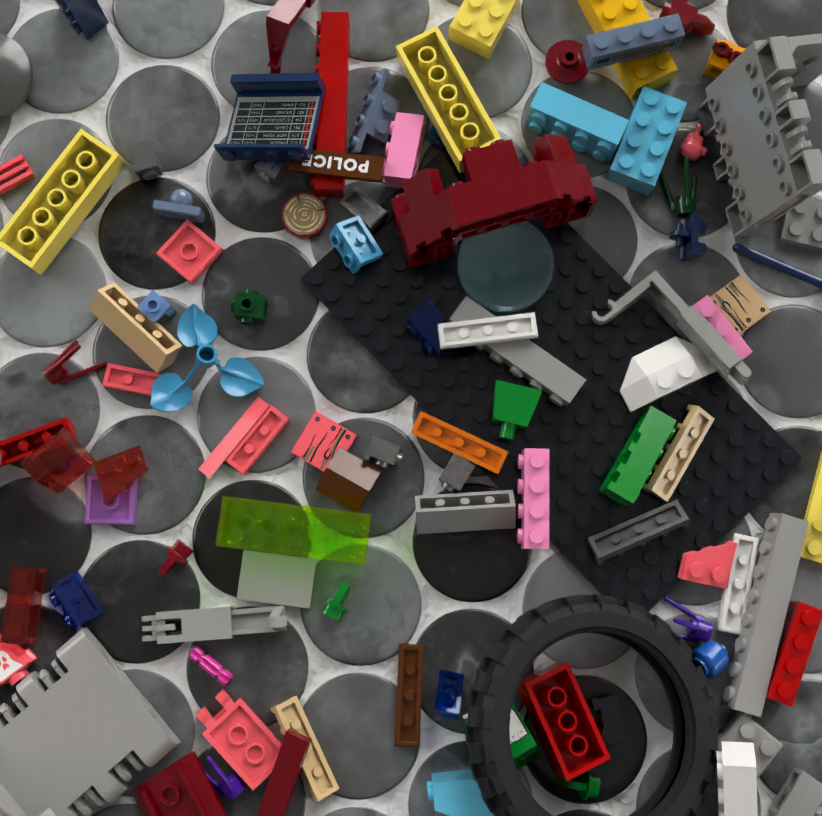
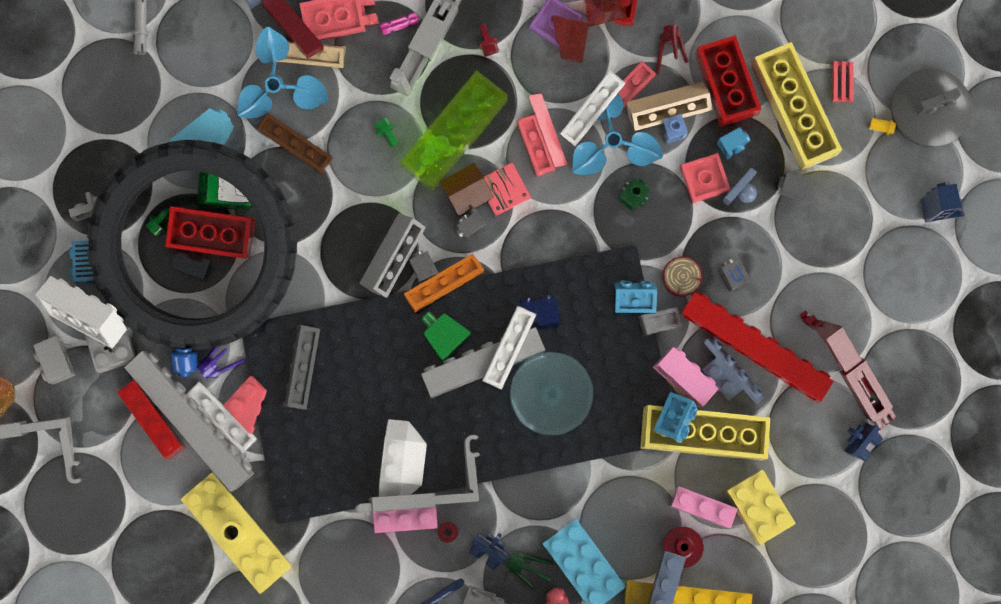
camera: 120 degrees right, 0 degrees up
(30, 106) = (882, 125): none -> yellow pin
(71, 283) = (728, 81): none -> red brick
(136, 243) = (733, 142): none -> dark azure brick
(183, 402) = (592, 108): none -> white tile
(273, 117) = (767, 293): panel -> none
(276, 579) = (427, 100): light grey tile -> none
(341, 166) = (702, 317): reddish brown tile -> none
(391, 768) = (255, 103): none -> dark azure plant
(448, 695) = (277, 167): clear blue slope -> none
(455, 126) = (676, 417): none -> dark azure bracket
(493, 198) = (601, 409): dark red brick -> none
(518, 64) = (703, 507): none -> bright pink brick
(534, 499) = (369, 307): bright pink brick -> none
(584, 124) = (629, 517): medium azure brick -> none
(638, 457) = (353, 399): green wedge -> none
(679, 453) = (337, 433): tan hinge -> none
(694, 292) = (447, 539): none -> dark red plate
(740, 304) = (416, 551): tan tile -> none

